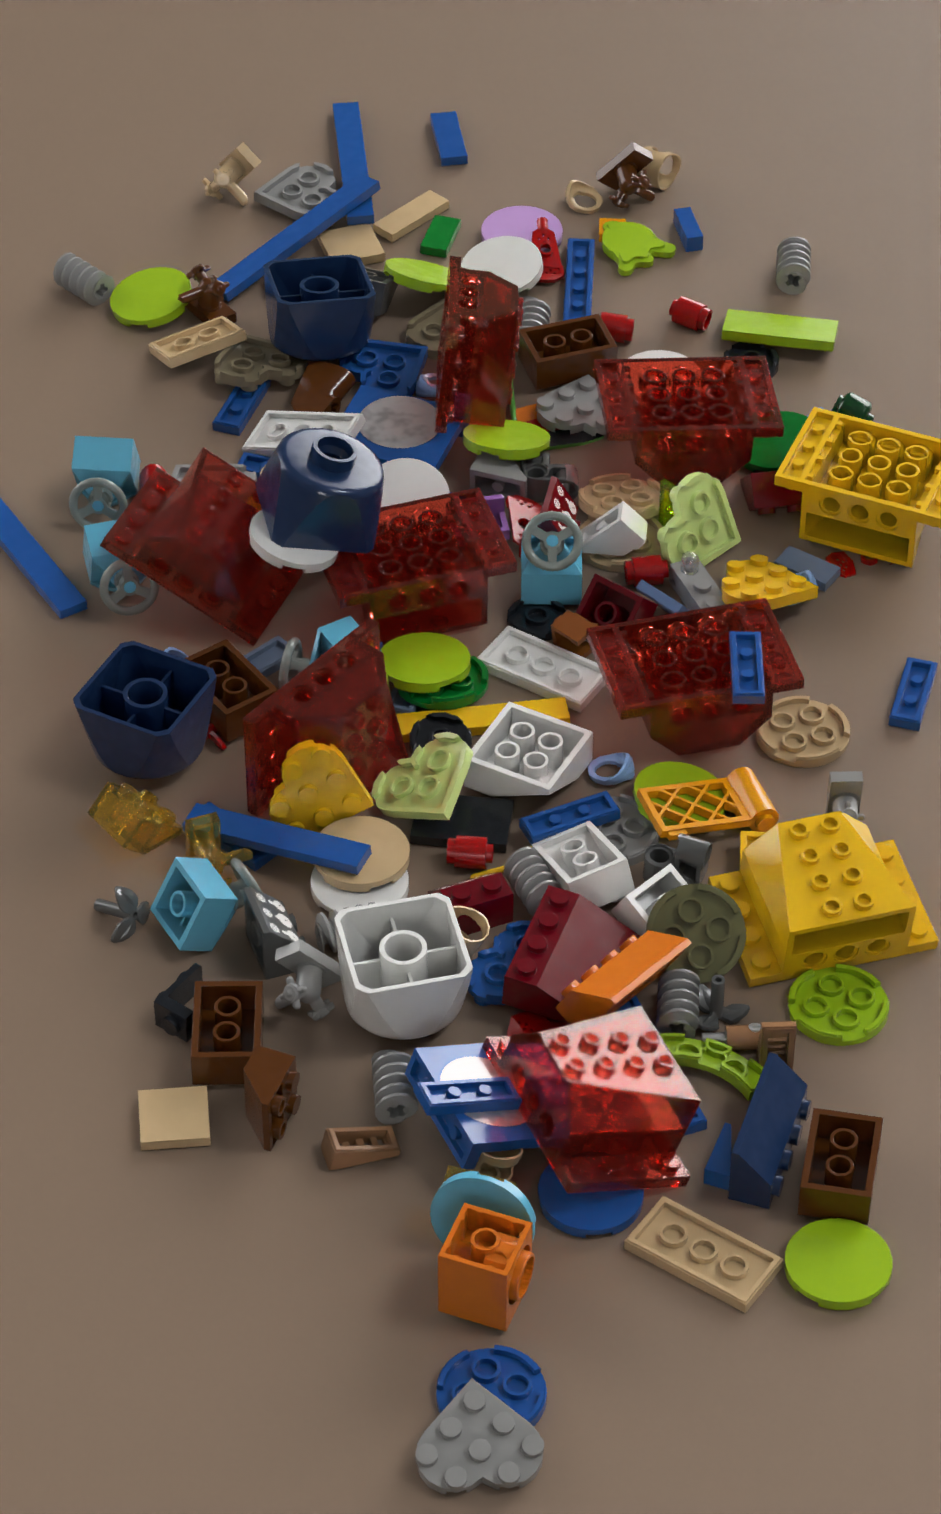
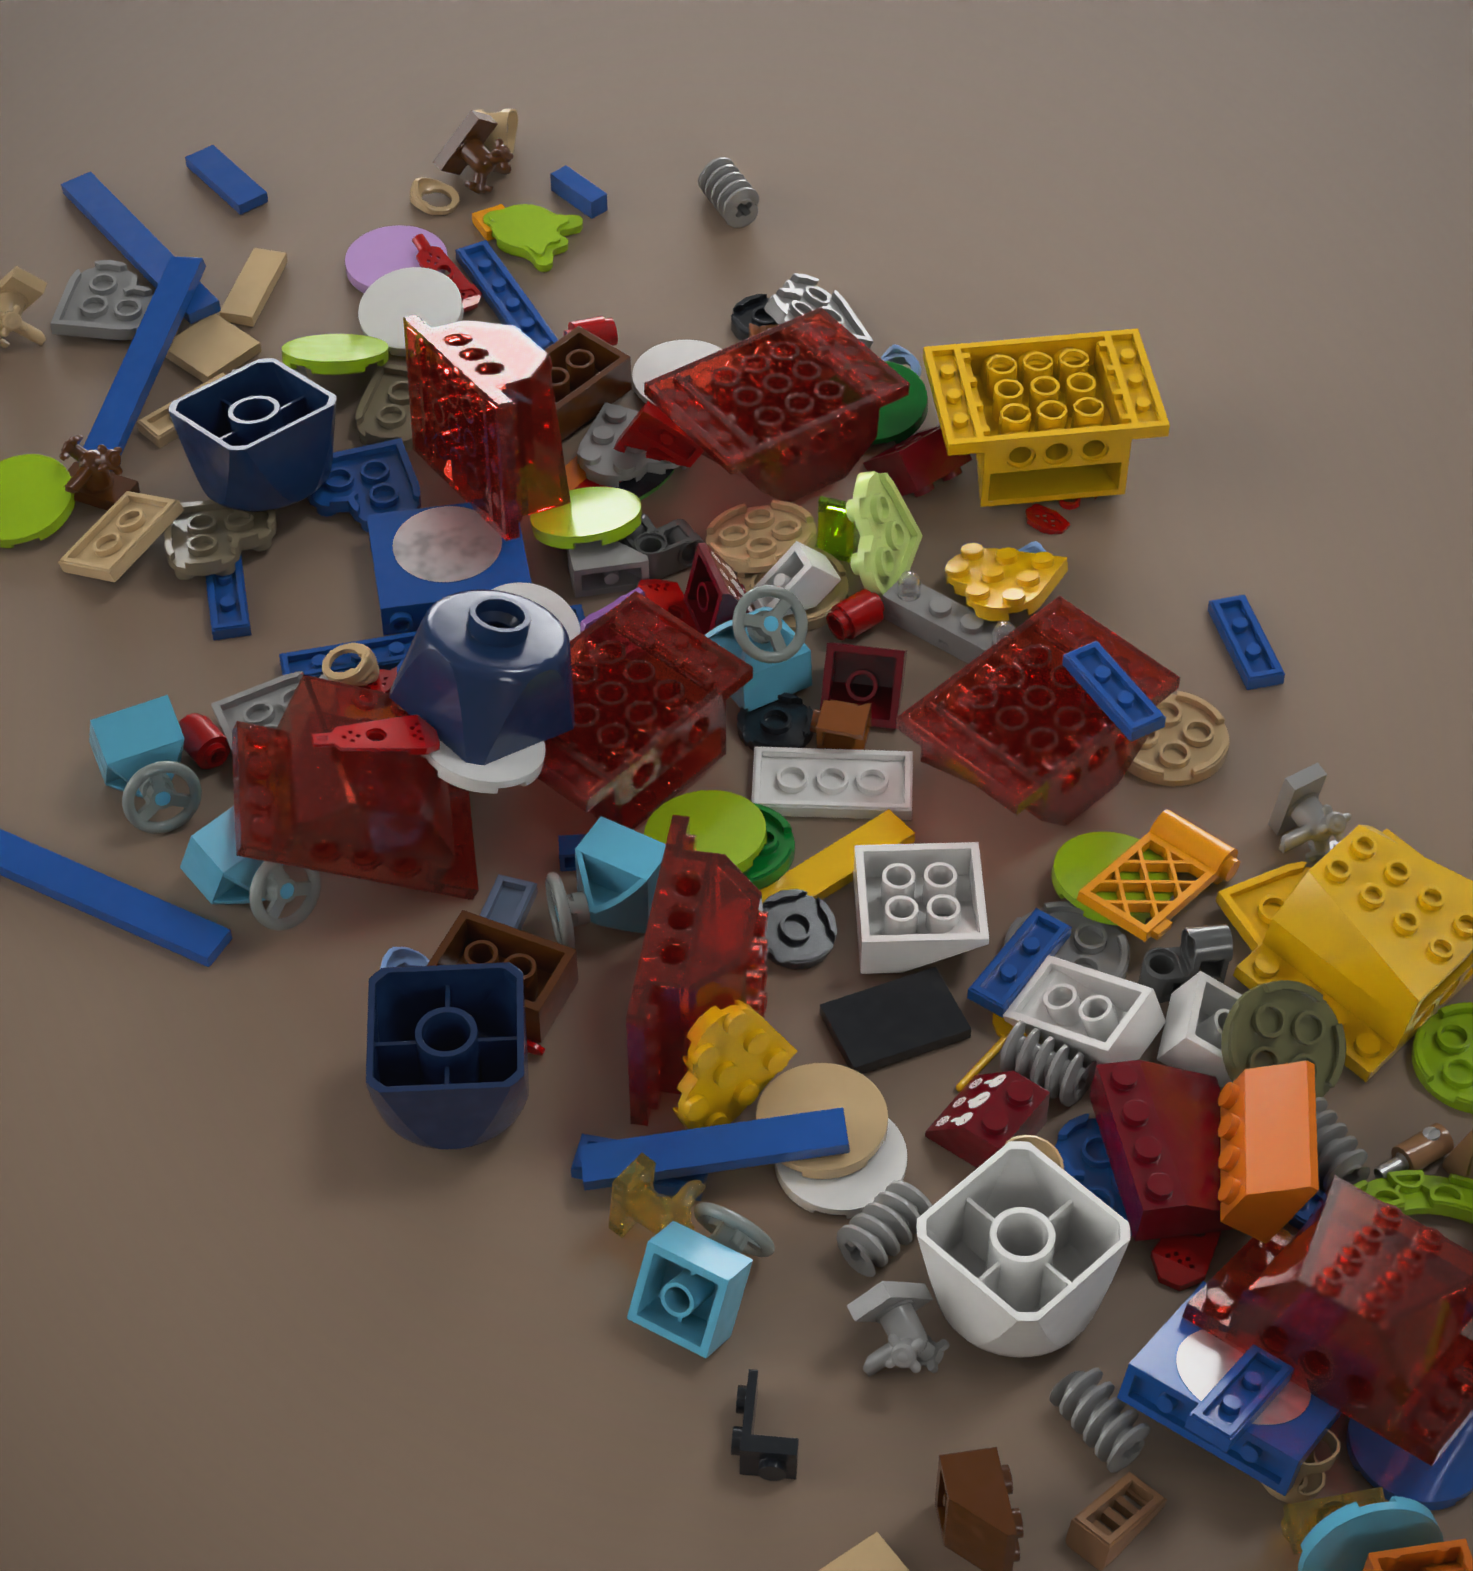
camera: 30 degrees left, 5 degrees up
(127, 910) = (604, 1333): dark grey plant -> none
(134, 818) = (513, 1201): clear yellow slope -> none
(225, 1030) = (857, 1446): reddish brown brick -> none
(242, 507) = (396, 734): none -> red piece
(268, 929) = (804, 1283): dark grey slope -> none
(278, 424) = (345, 604): white tile -> none
(322, 388) = (318, 541): reddish brown panel -> none
(424, 387) = (432, 490): light blue piece -> none
(426, 782) = (836, 991): yellowish green plate -> none
(440, 236) = (306, 299): green tile -> none
(469, 852) = (940, 1058): red brick -> none
(587, 400) = (660, 437): none -> red wing
(620, 759) = (1010, 860): light blue piece -> none
(664, 601) = (915, 645): medium blue tile -> none
(690, 313) = (661, 288): red brick -> none
(712, 1002) = (1368, 1122): dark grey plant -> none
(780, 330) = (767, 271): lime tile -> none
(789, 366) = (803, 295): none -> light grey plate
(798, 561) = (1018, 534): sand blue tile -> none
(854, 406) = (924, 332): dark green head -> none

